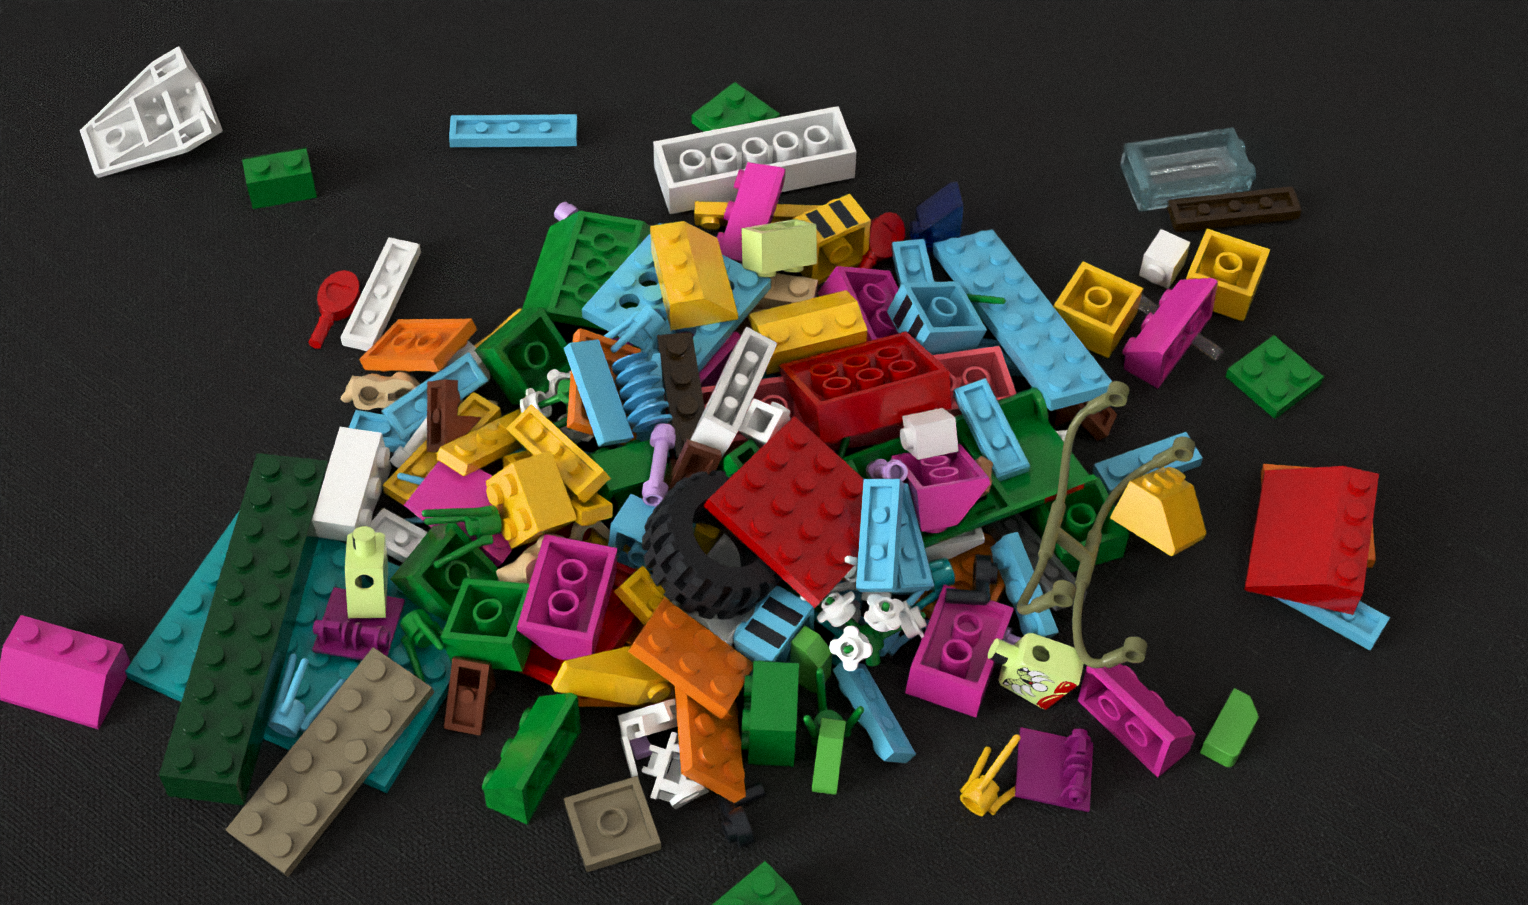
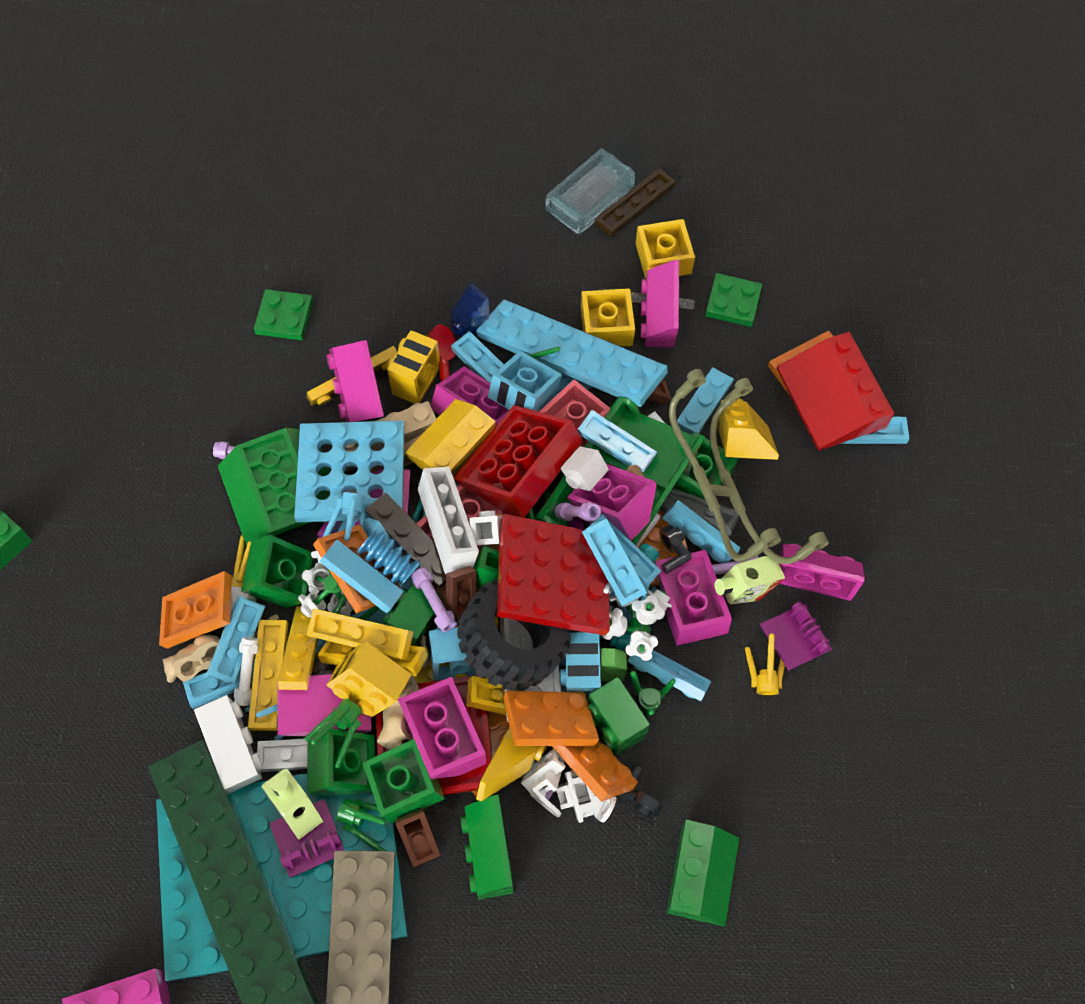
camera: 35 degrees left, 10 degrees up
(288, 713) = (309, 936): medium azure plant -> none
(335, 302) = (108, 610): red piece -> none
(381, 294) = (136, 586): white plate -> none
(442, 417) = (261, 657): copper slope -> none
(513, 130) = (139, 410): medium azure plate -> none
(612, 824) = (568, 857): dark tan plate -> none
(691, 276) = (355, 452): yellow slope -> none
(705, 164) = (300, 355): white brick -> none
(779, 247) = (394, 395): yellowish green brick -> none
(828, 756) = (668, 721): bright green piece -> none
(1164, 259) = (620, 259): white brick -> none
(1231, 729) = (871, 543): bright green piece -> none

